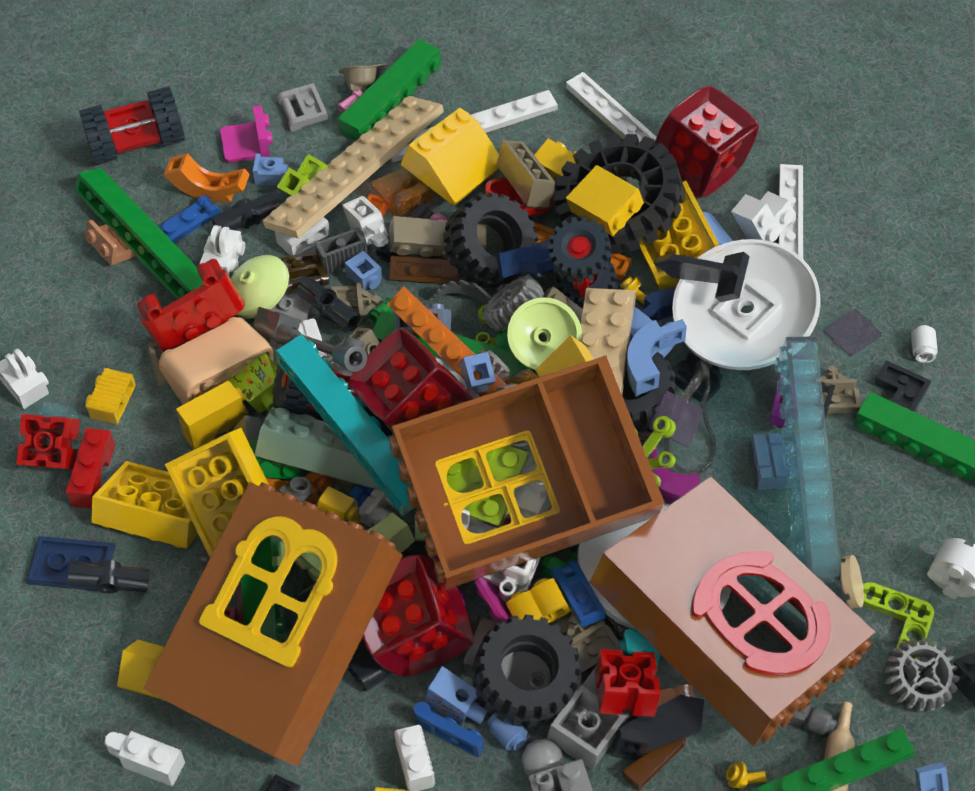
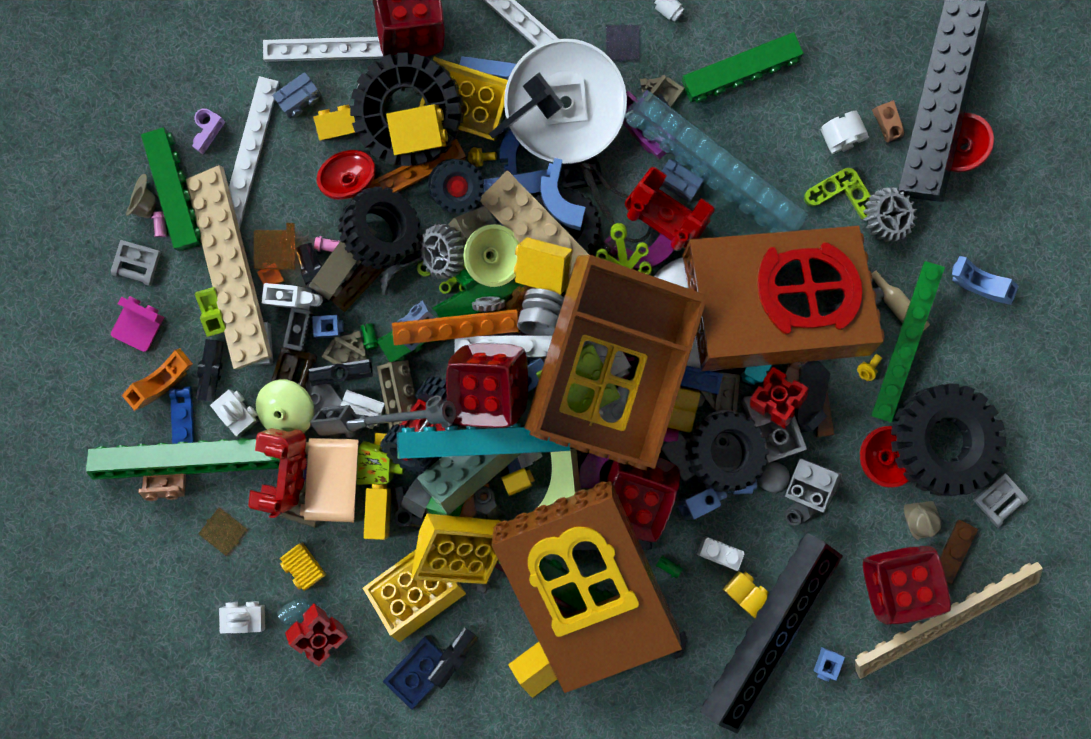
camera: 55 degrees left, 30 degrees up
(94, 453) = (350, 613): red arch -> none
(98, 317) = (222, 531): none -> clear orange piece
(132, 125) = (65, 403): plate -> none
(146, 756) = (600, 713): white hinge -> none
(268, 170) = (183, 335): medium blue brick -> none
(360, 726) = (669, 567): none -> green pin
(448, 729) = (713, 519): blue plate -> none
(452, 157) = (280, 195): yellow slope -> none
(468, 85) = (209, 130): none -> lavender plate
(482, 365) = (507, 325): medium blue brick -> none
(525, 174) = (335, 158): dark tan brick -> none
(526, 259) = (422, 210): dark blue bracket -> none
(557, 123) = (297, 95): none -> sand blue brick
(683, 413) = (610, 213): clear purple piece -> none
(720, 456) = (666, 213): none -> red container
(764, 217) = (498, 24): white brick -> none
(852, 581) = (808, 206): tan tile -> none
(907, 385) = (692, 45): black plate -> none

